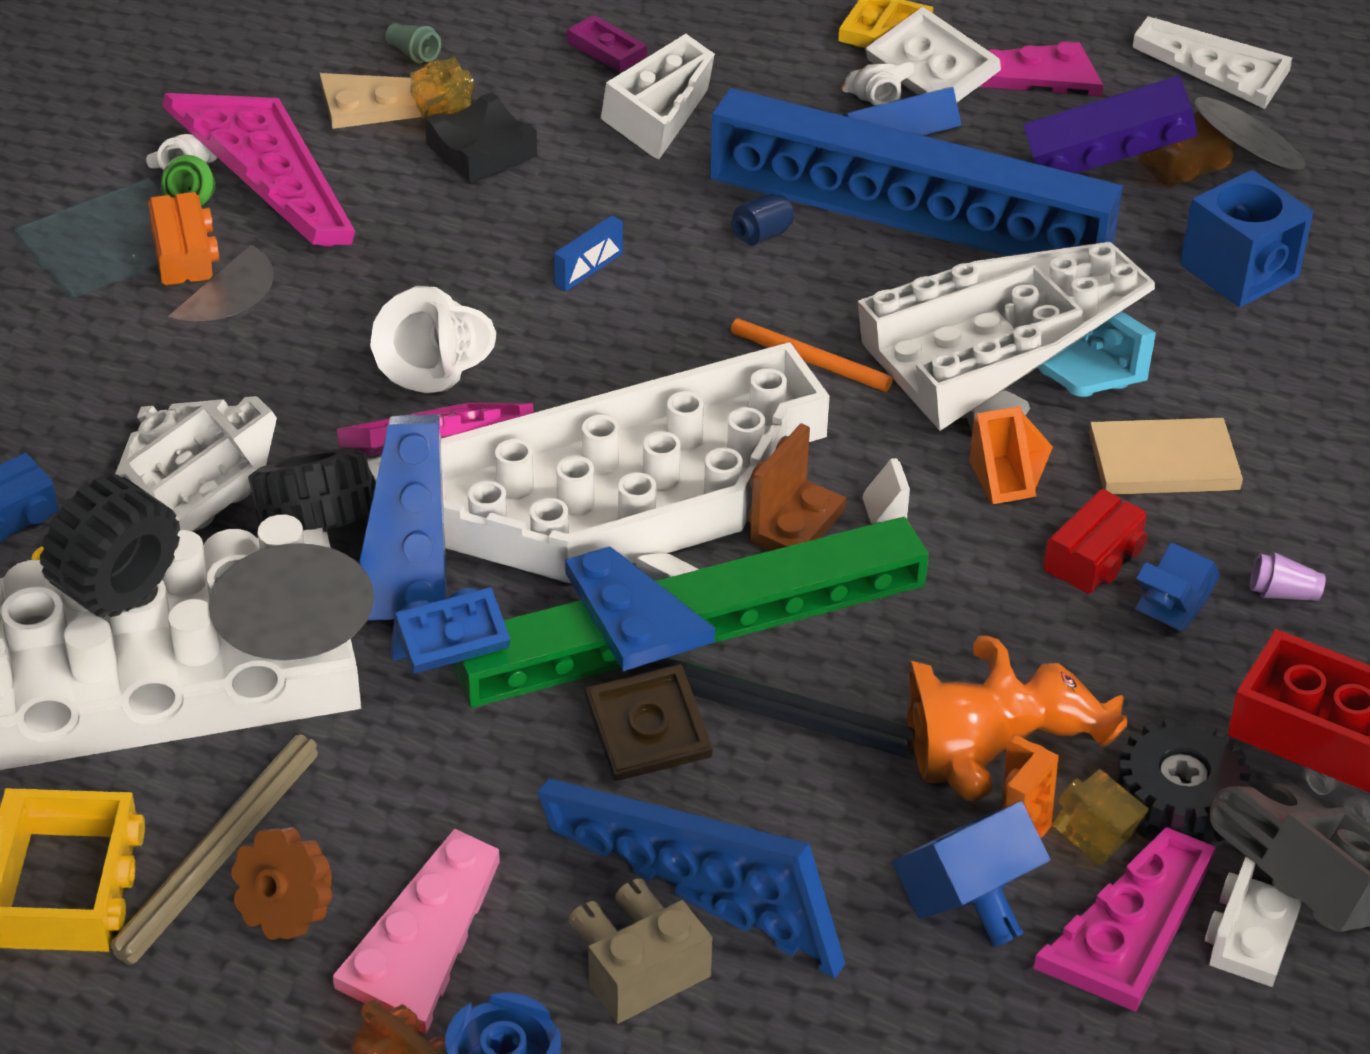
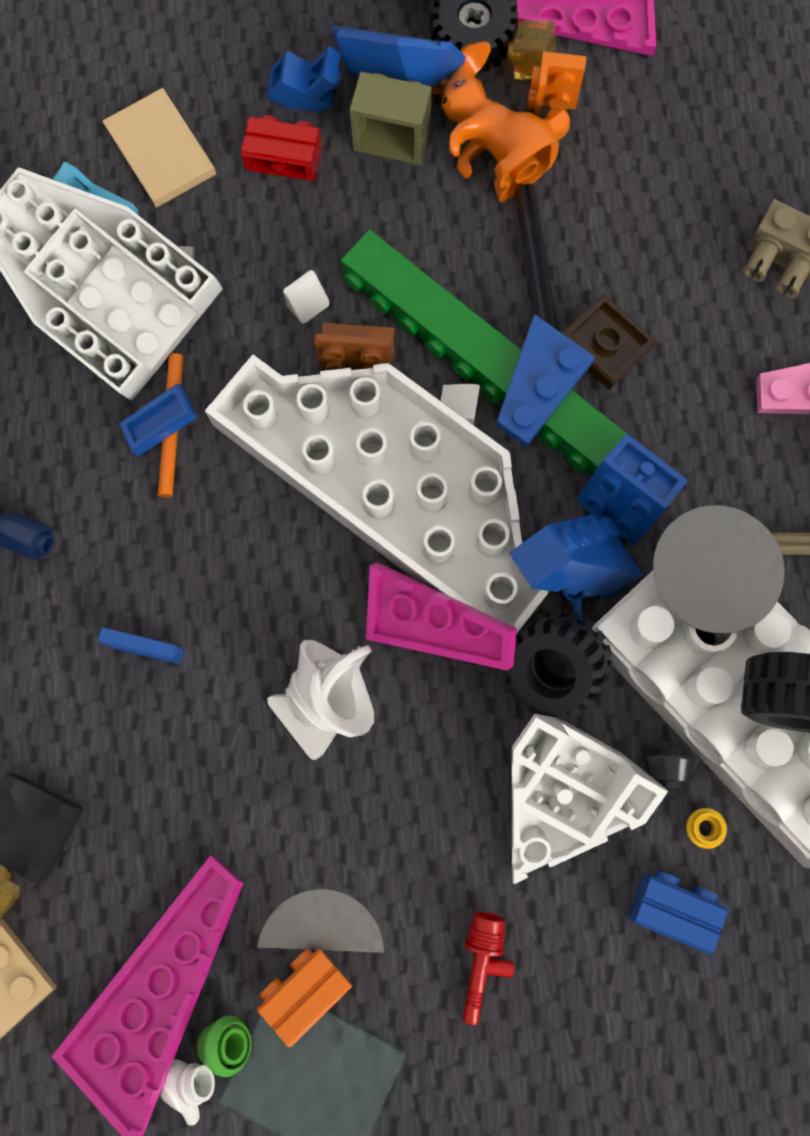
camera: 115 degrees left, 35 degrees up
(106, 365) = (486, 940): none -> red piece
(713, 863) = (718, 237): blue wing -> none
(818, 337) = (158, 420): none -> blue tile
(973, 868) = (627, 90): brick -> none
(1007, 454) = (227, 237): orange slope -> none
(1070, 620) = (391, 117): none -> olive piece
(1165, 645) = (396, 55): none -> blue wedge
(1285, 579) = (252, 32): lavender cone -> none

